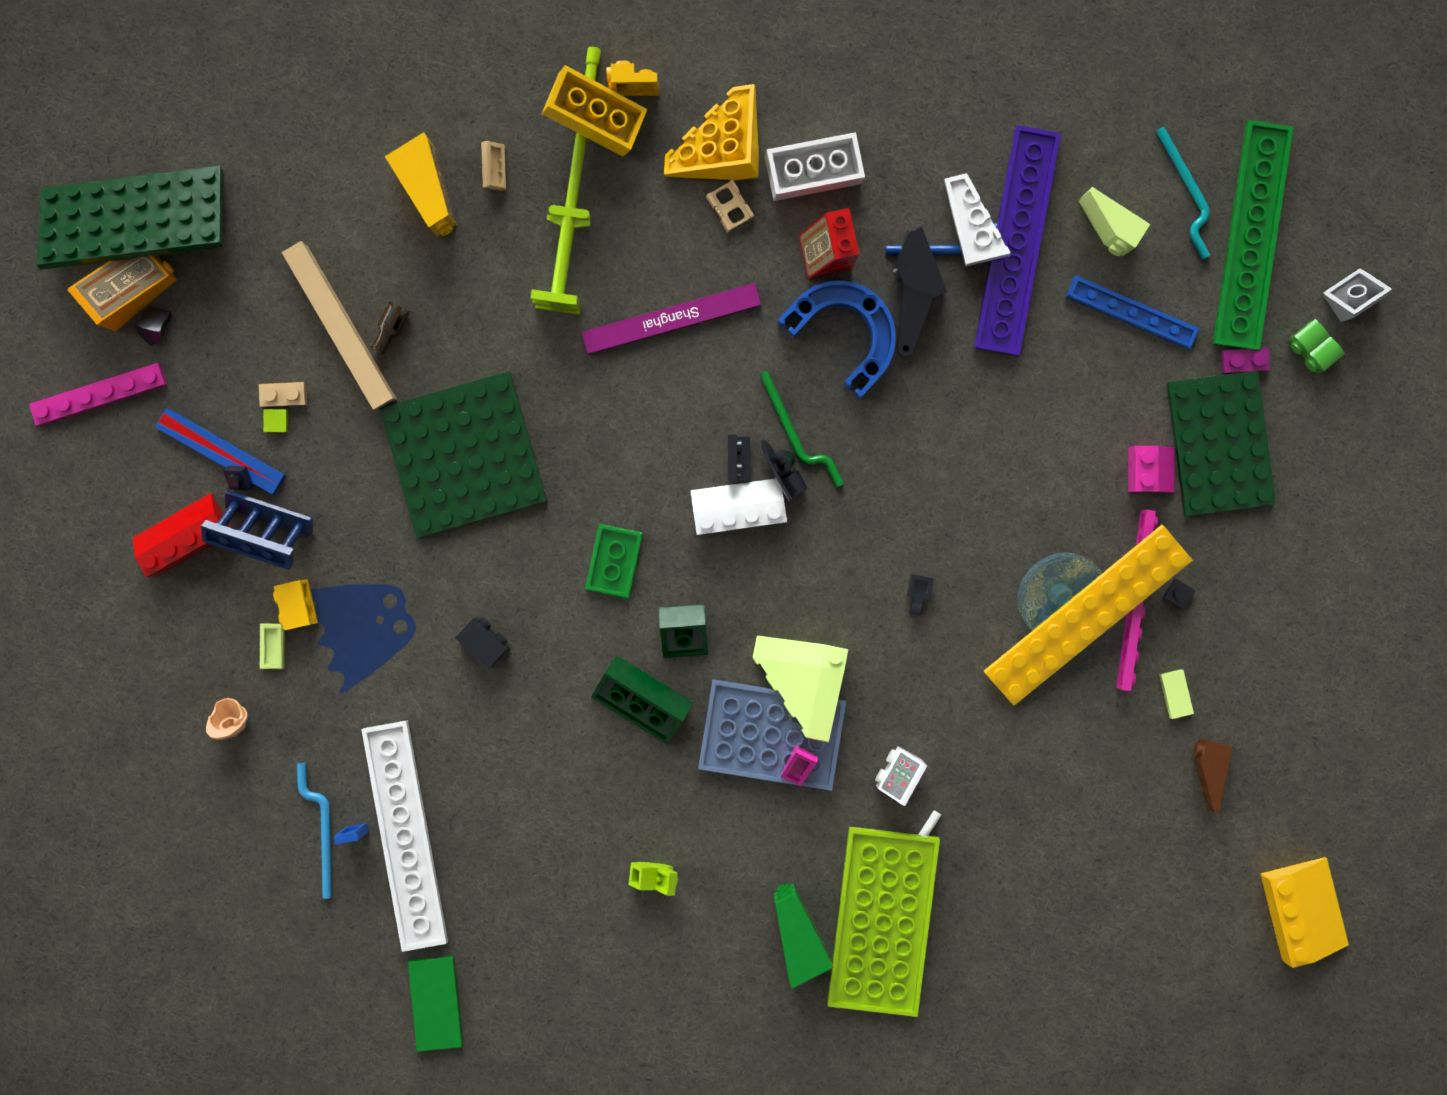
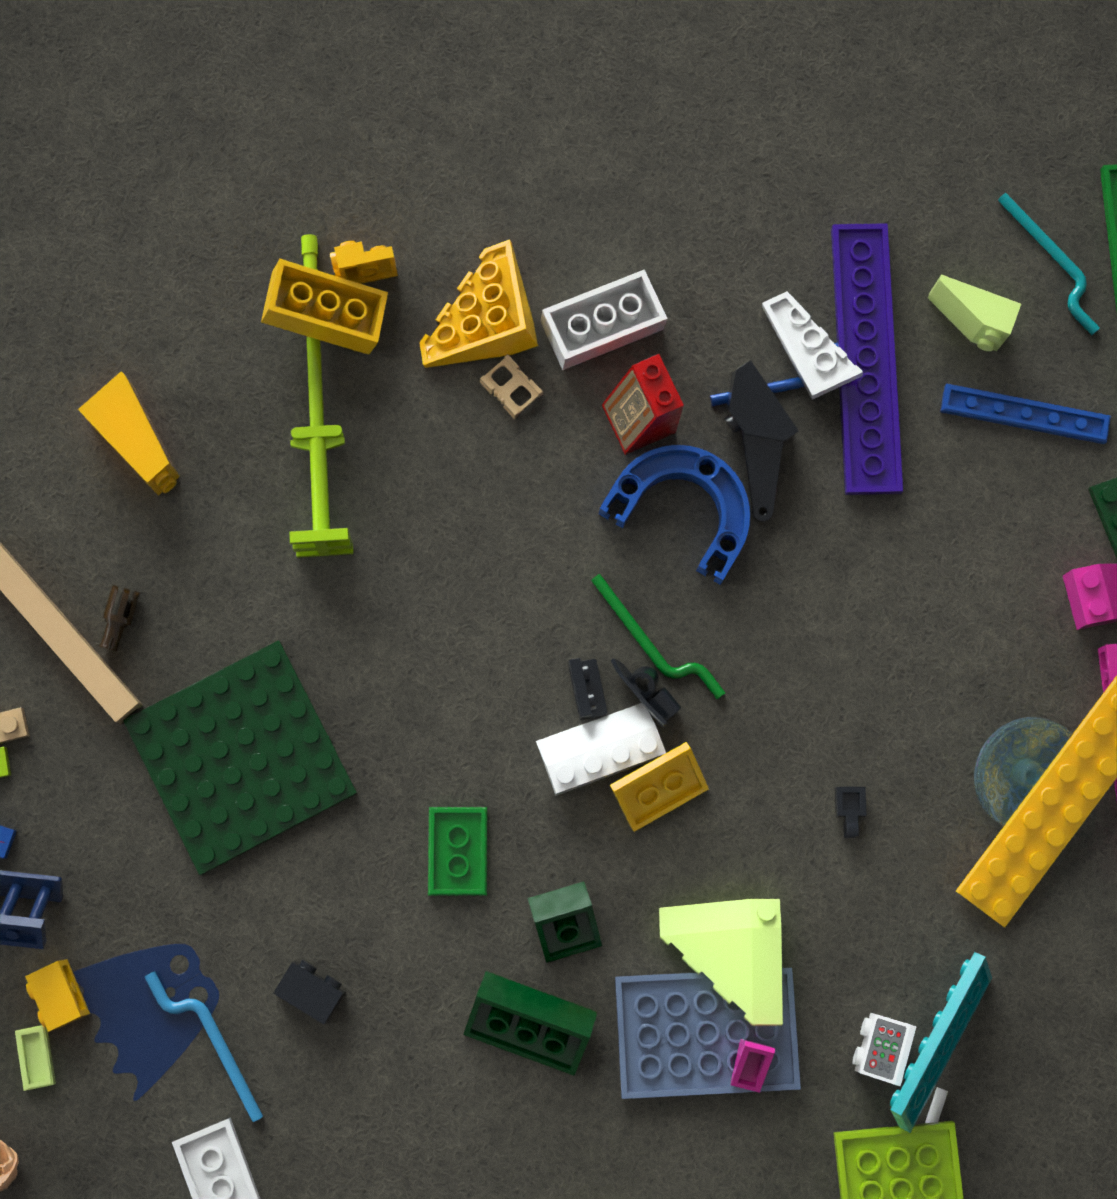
camera: 15 degrees left, 10 degrees down
(407, 660) = (215, 1037): none -> dark azure piece
(493, 165) = (212, 396): tan plate -> none
(671, 318) = (467, 535): magenta tile -> none
(777, 545) = (659, 786): none -> yellow plate
(939, 785) = (938, 1048): none -> teal plate

